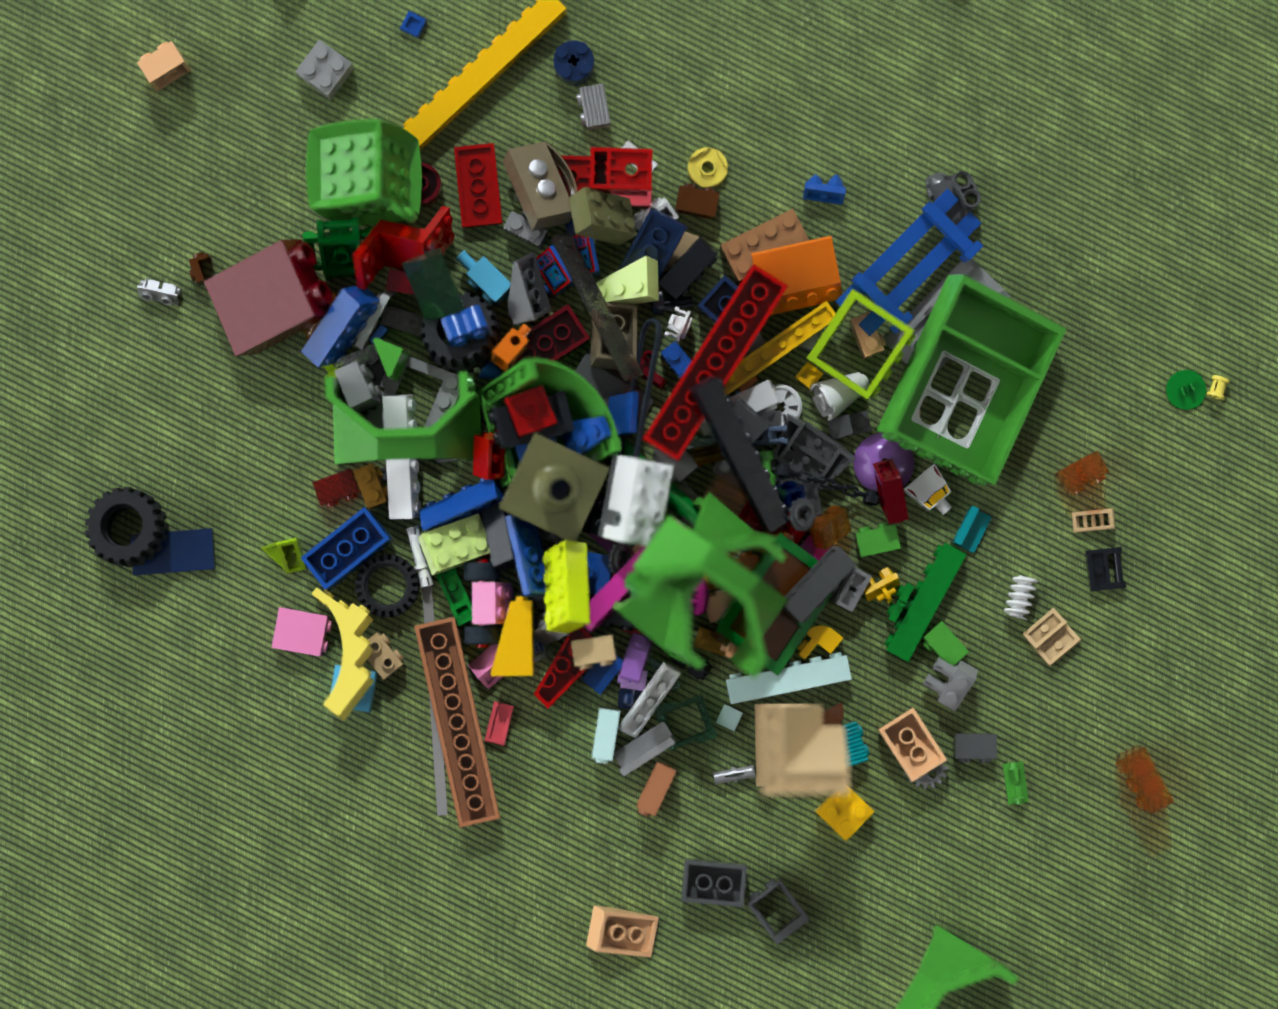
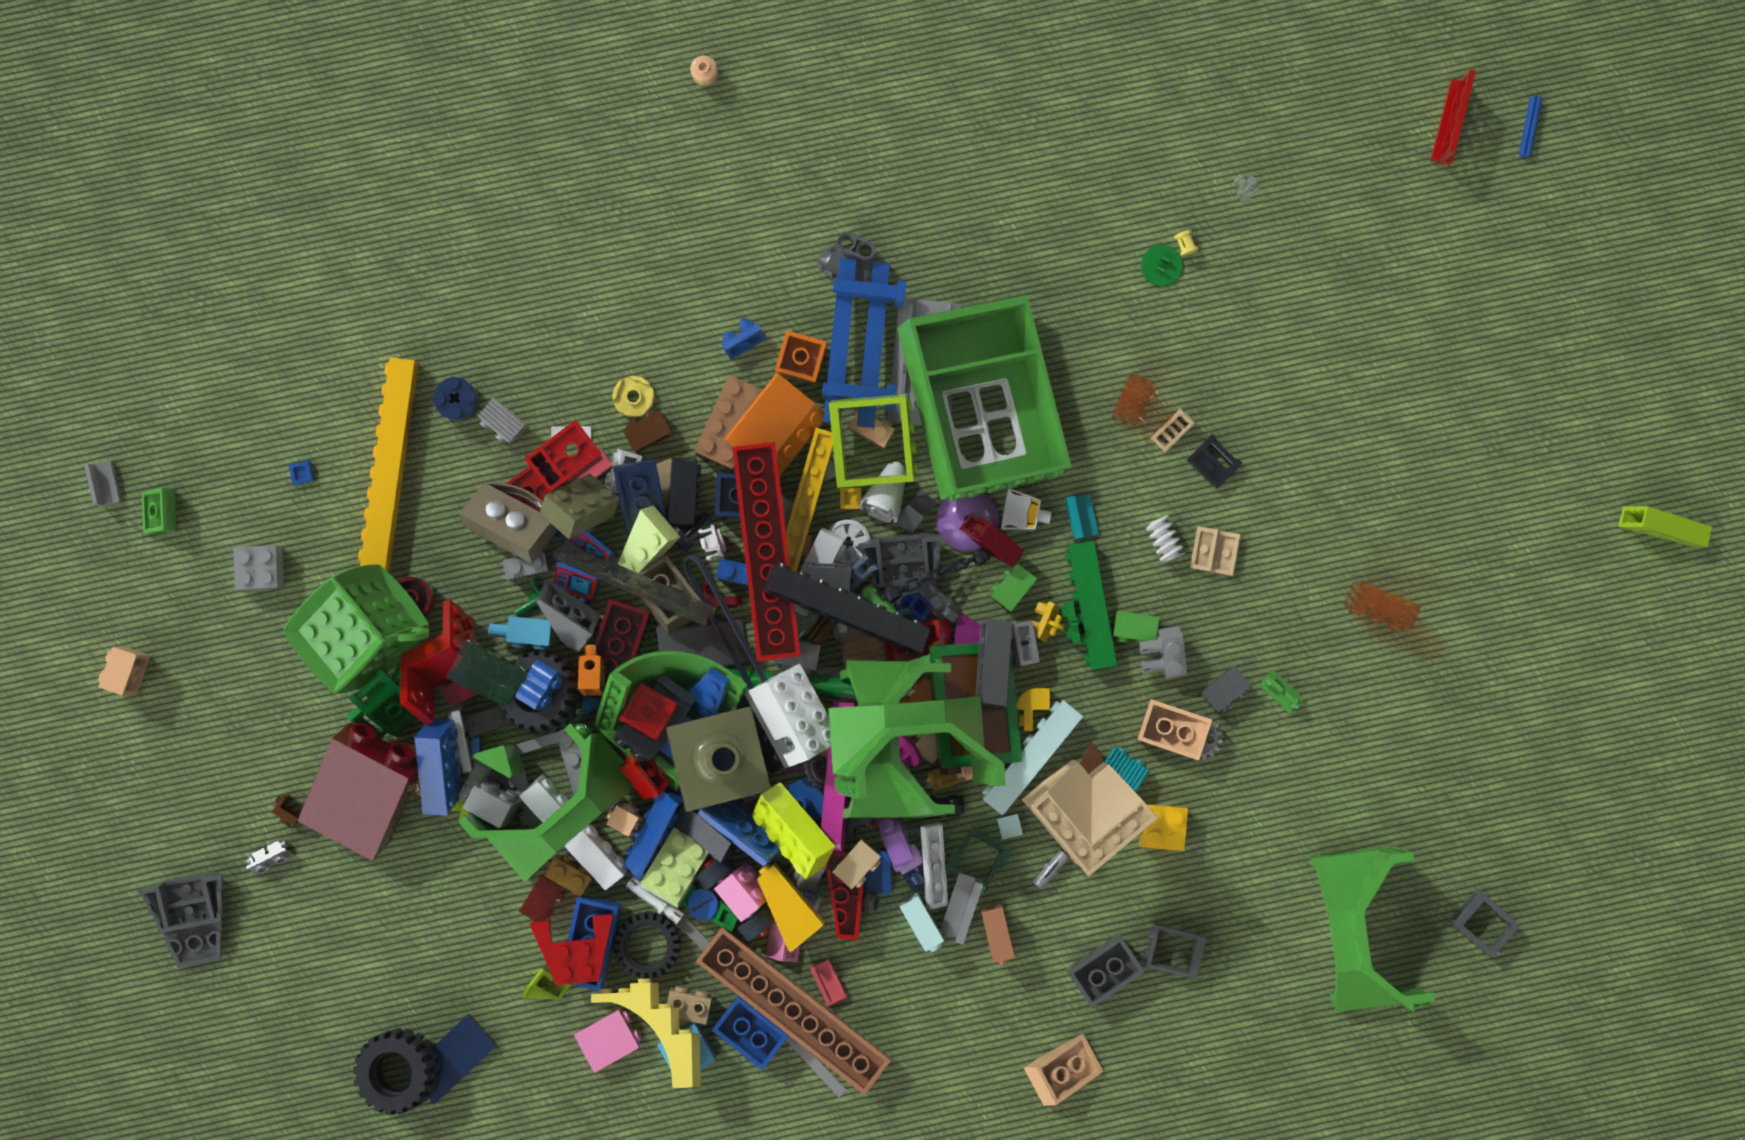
camera: 30 degrees left, 0 degrees up
(64, 287) = (188, 916): none -> dark grey wedge
(325, 551) = (574, 959): none -> red wing
(412, 712) = (750, 1032): none -> blue brick
(447, 478) = (625, 819): none -> light nougat brick
(453, 588) = (702, 903): none -> blue piece
(478, 185) = (459, 561): red plate -> none
(511, 256) = (533, 596): none -> green hose
(579, 688) = (870, 902): none -> dark grey plate
(624, 412) = (725, 651): blue tile -> none
(807, 514) = (940, 612): dark grey gear -> none
(830, 527) = (966, 608): clear orange brick -> none
(857, 239) = (801, 357): none -> orange brick

